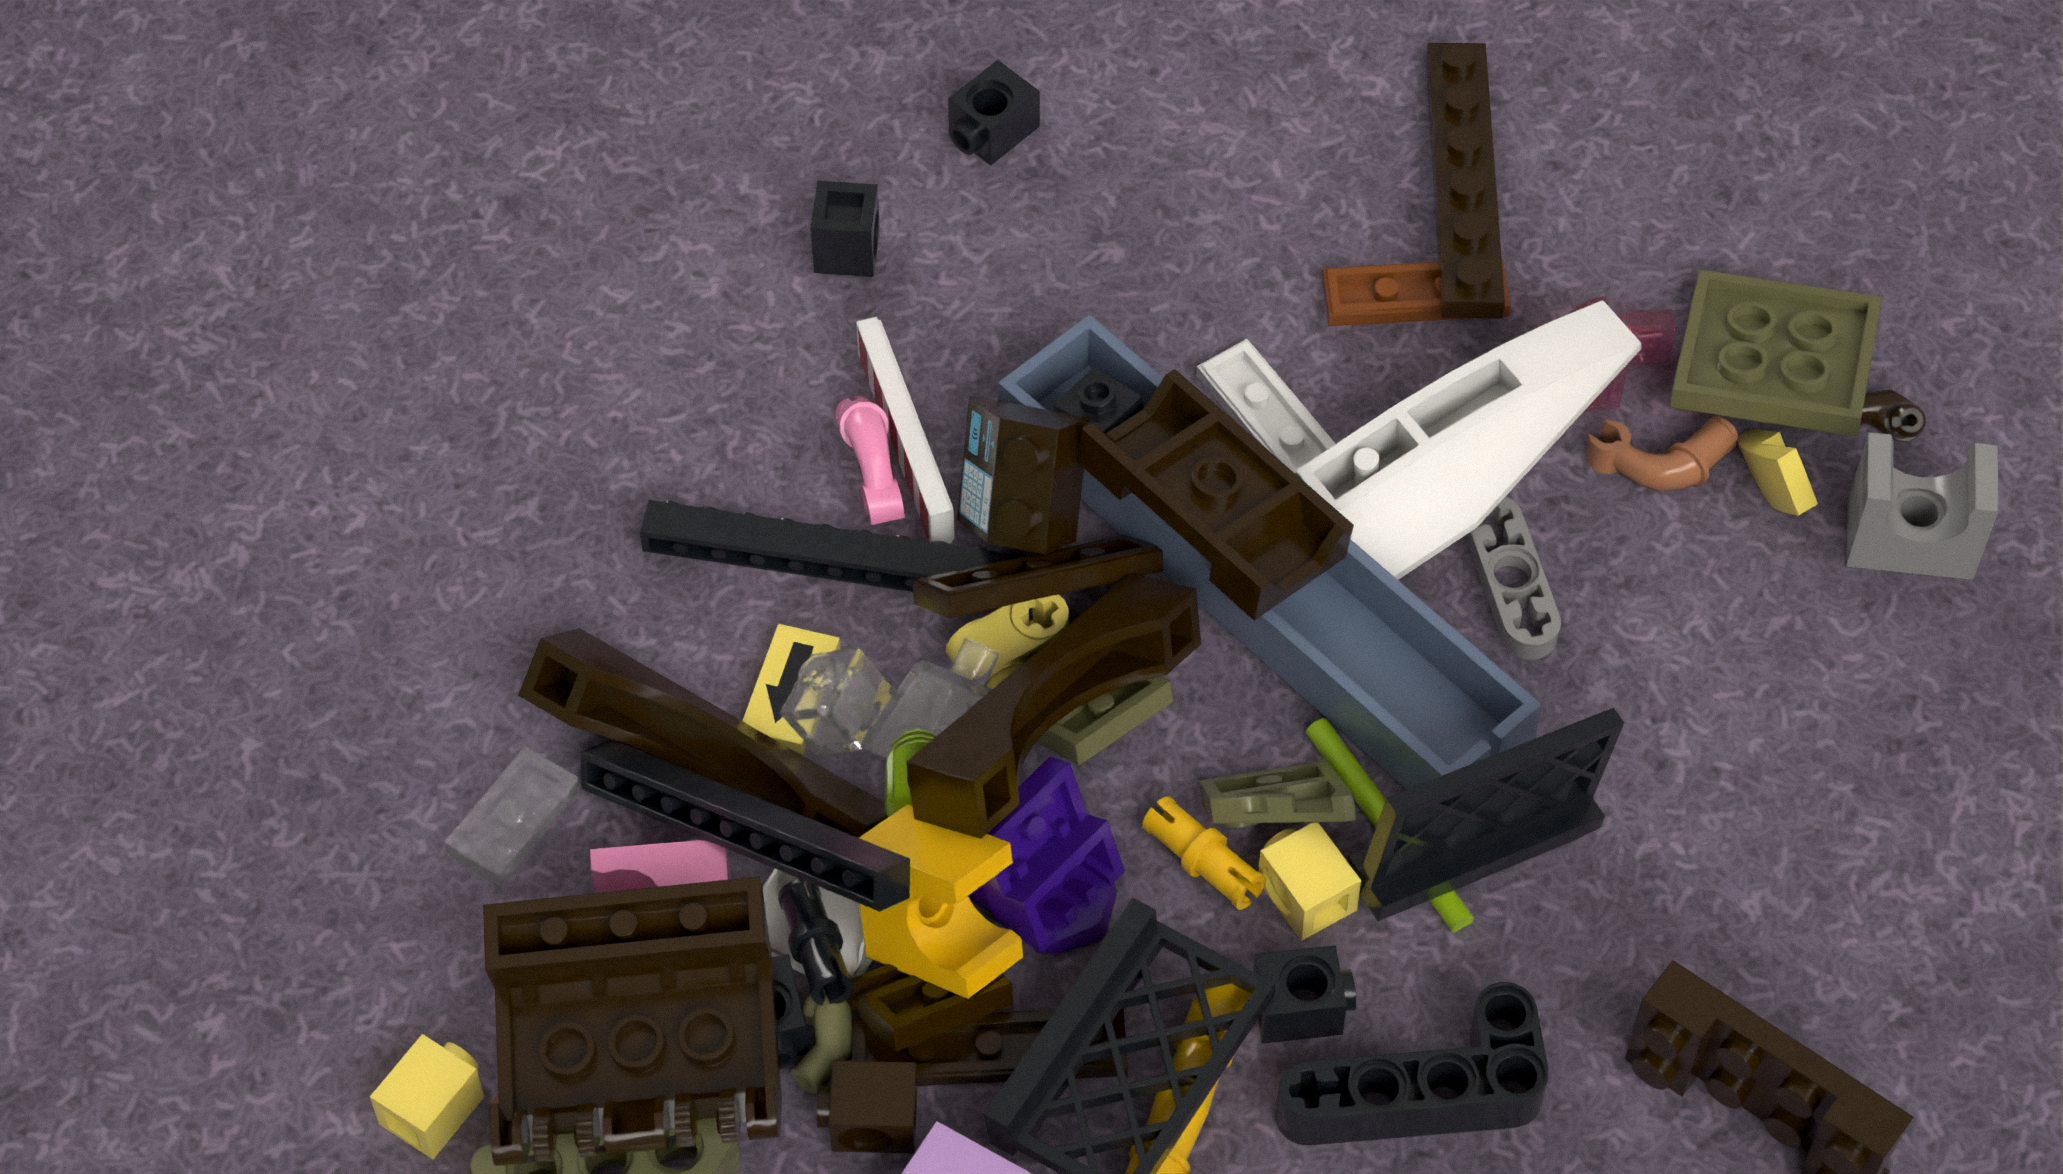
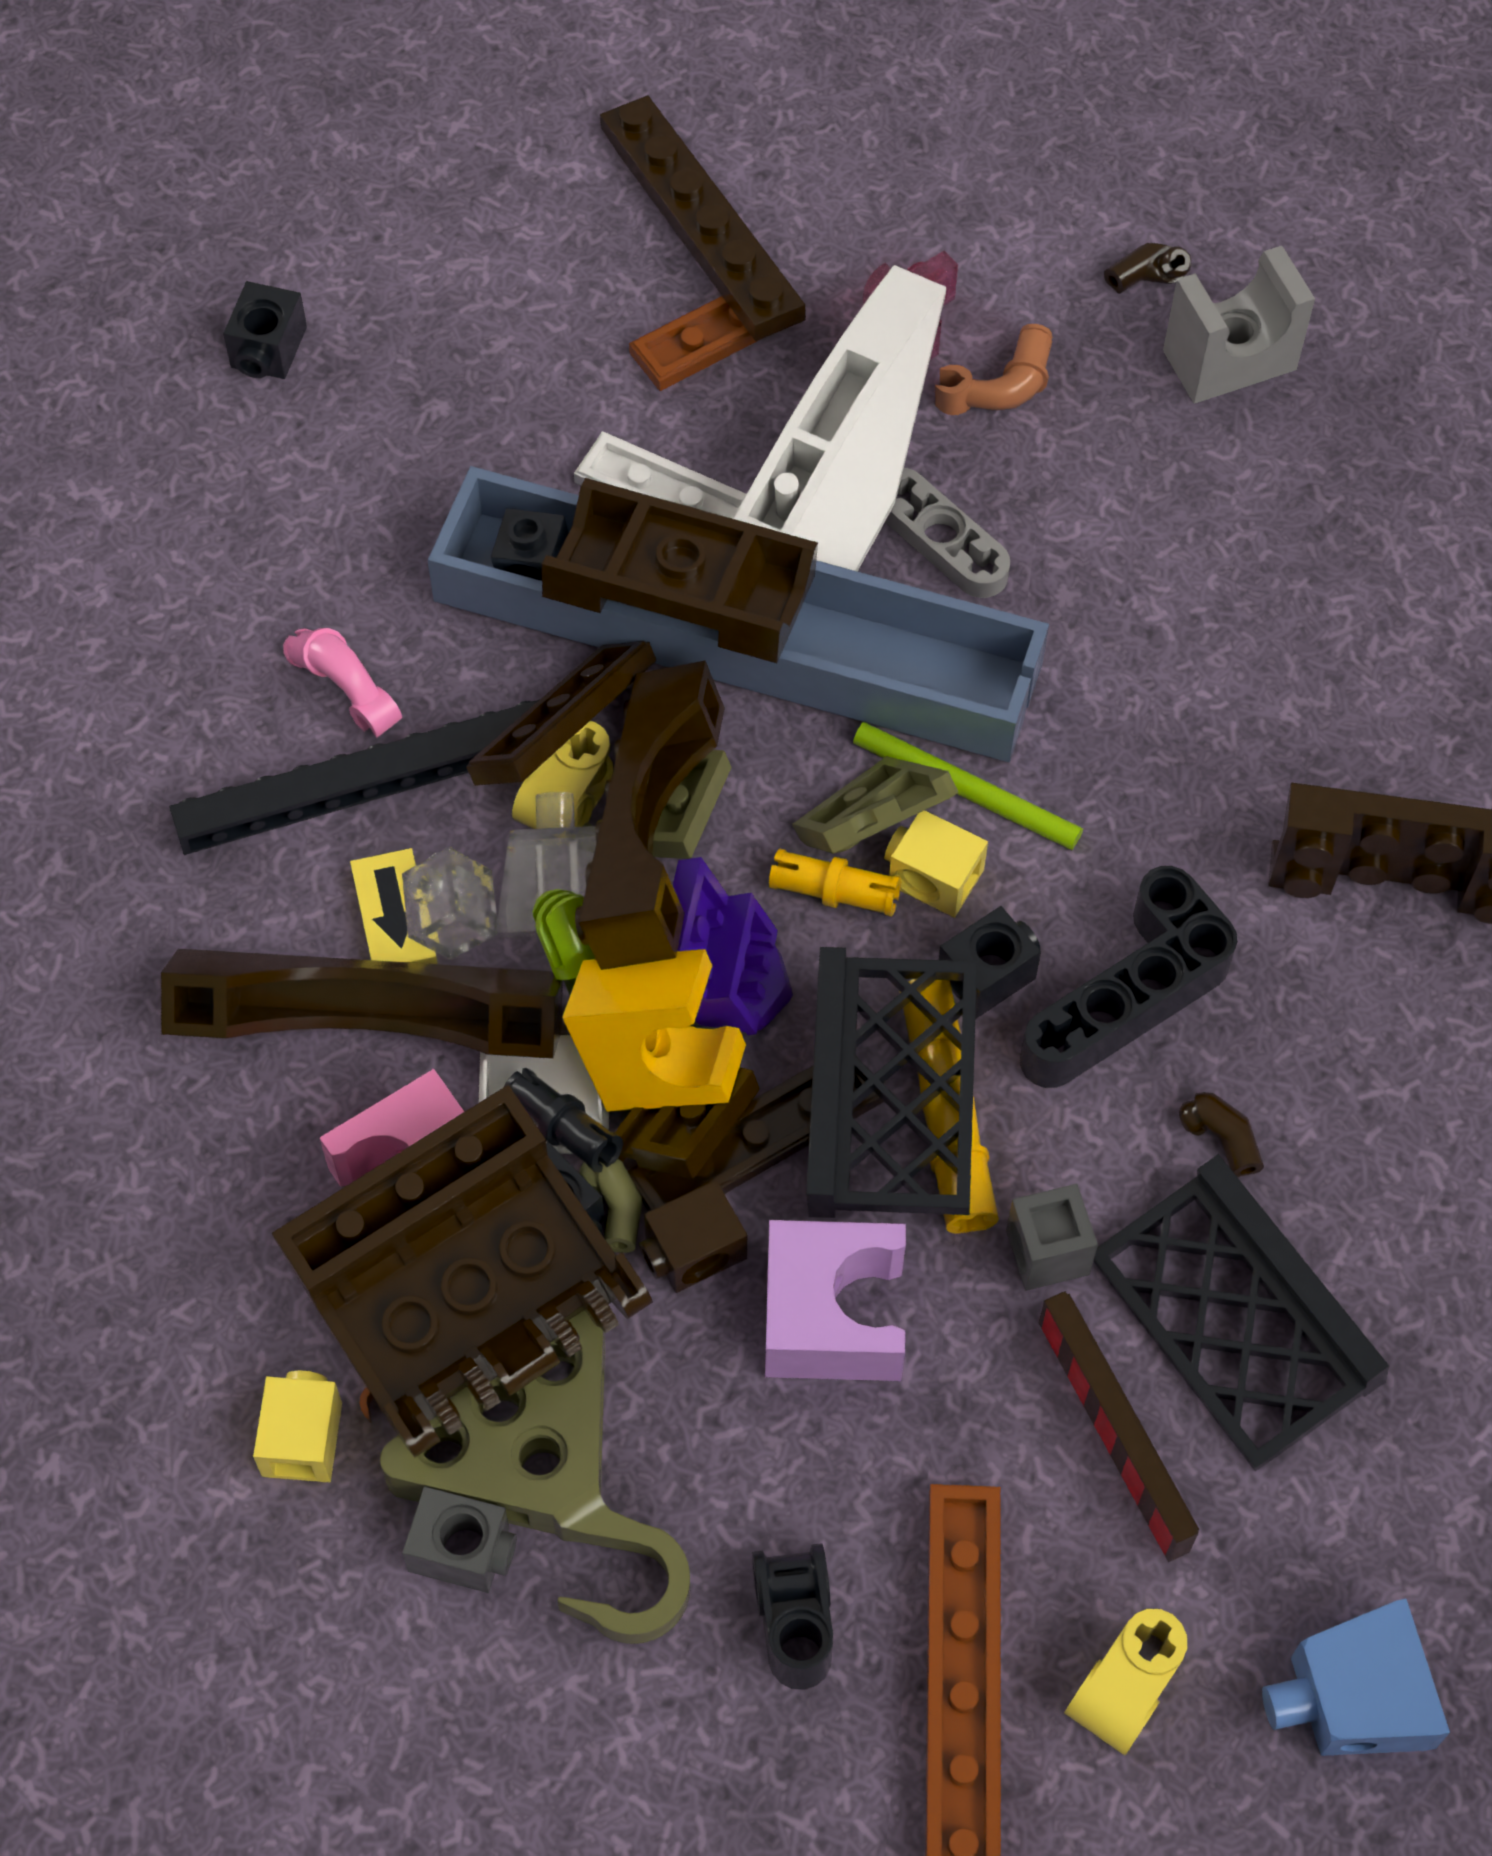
camera: 30 degrees left, 5 degrees up
(512, 816) = (217, 1144): clear plate -> none
(747, 825) = (450, 1047): black piece -> none
(845, 228) = (200, 487): black brick -> none
(905, 431) = (380, 656): white tile -> none
(1021, 475) = (492, 632): dark brown slope -> none
(1486, 816) = (1059, 743): black fence -> none
(1777, 353) = (1045, 251): olive plate -> none
(1777, 471) = (1101, 349): light yellow slope -> none

